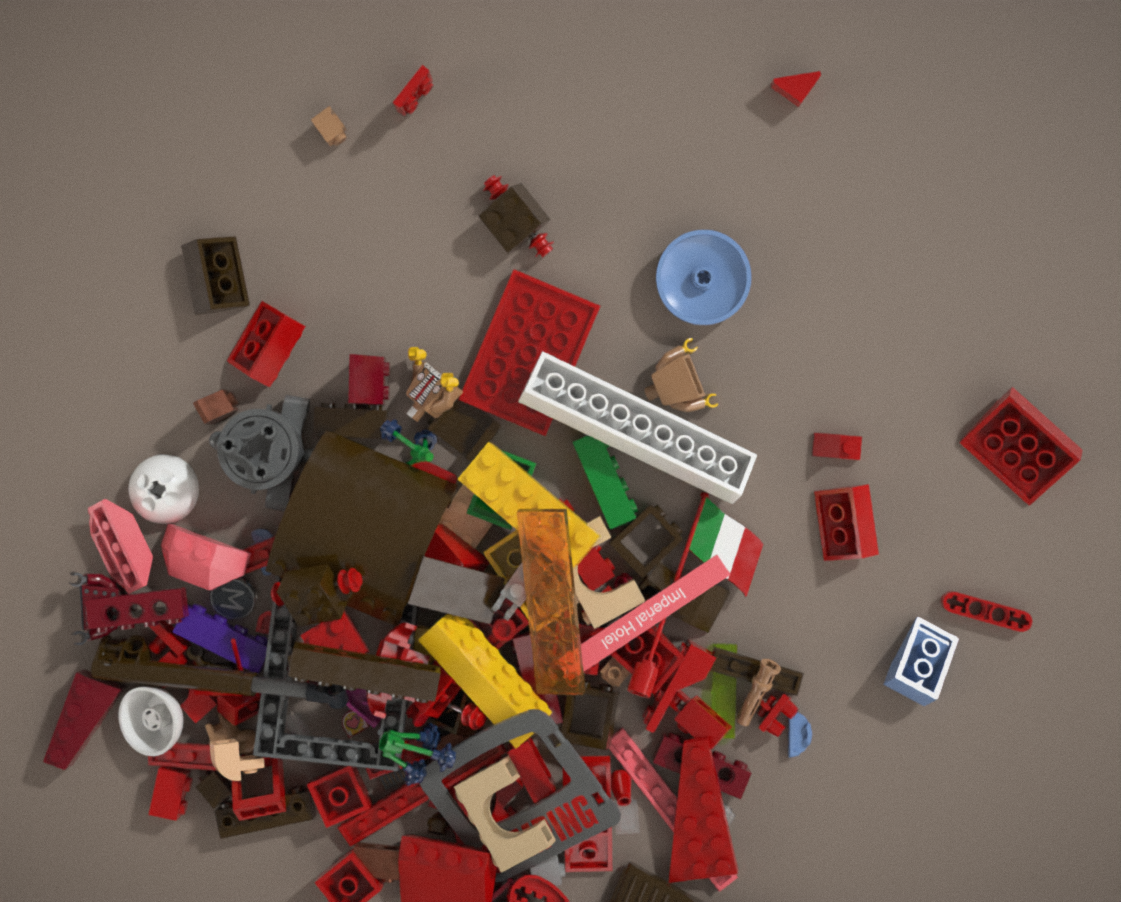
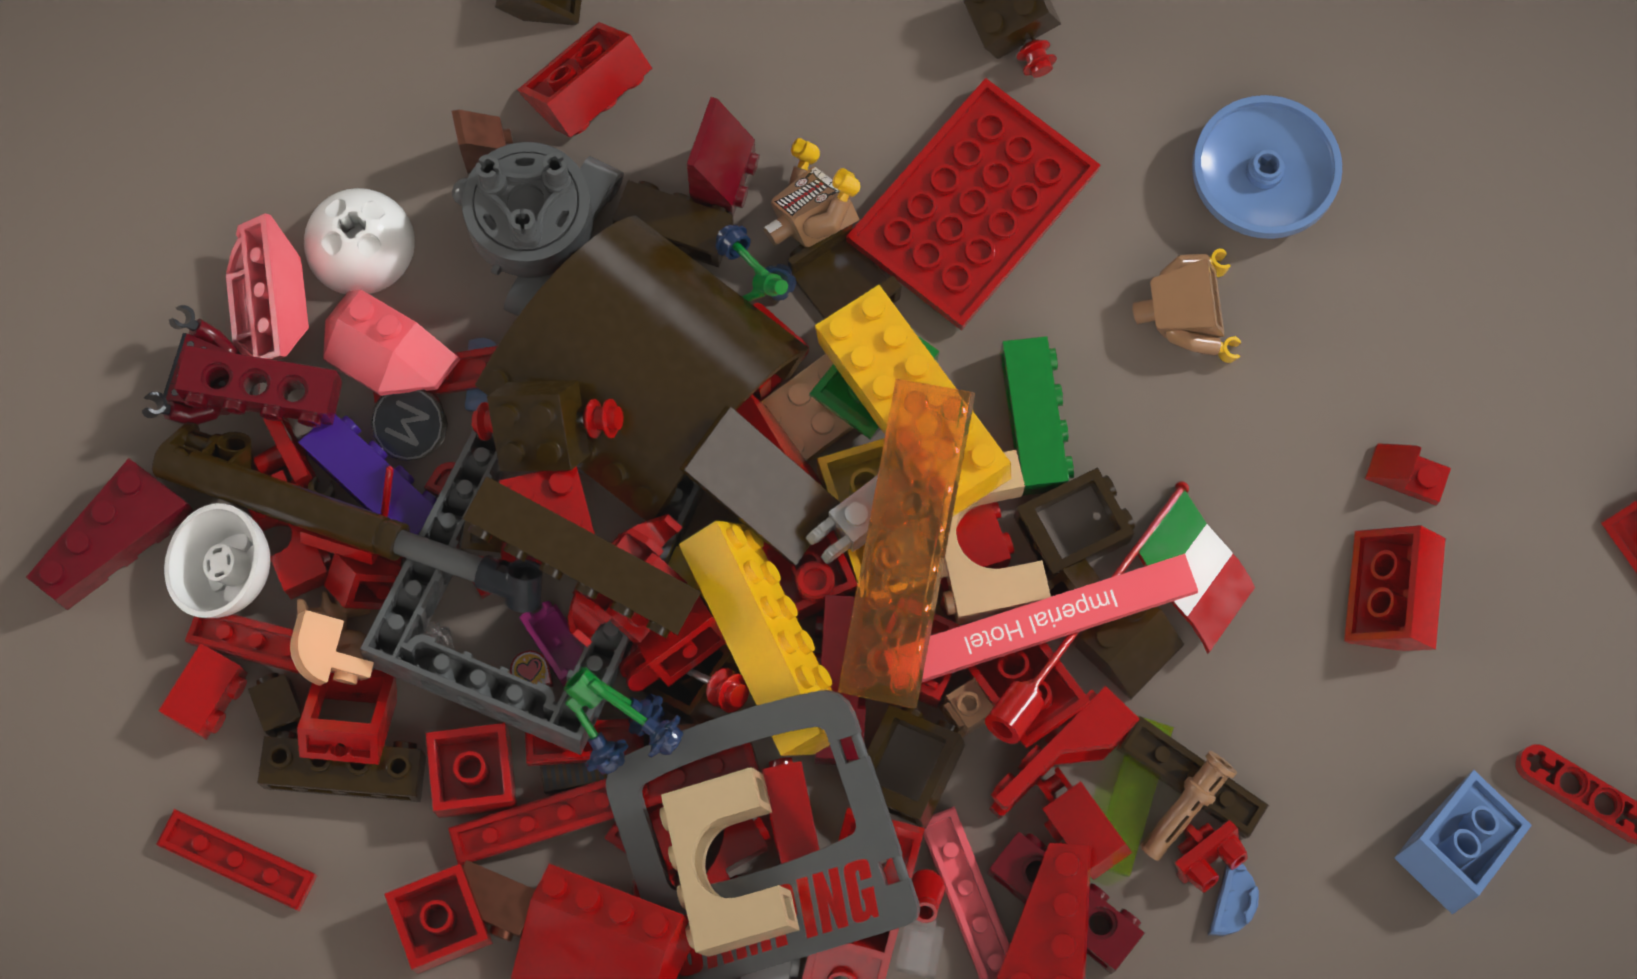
camera: 15 degrees right, 15 degrees down
(223, 879) = (236, 860): none -> red tile
(437, 824) = (612, 870): dark brown plate -> none
(638, 428) = (1110, 345): white brick -> none

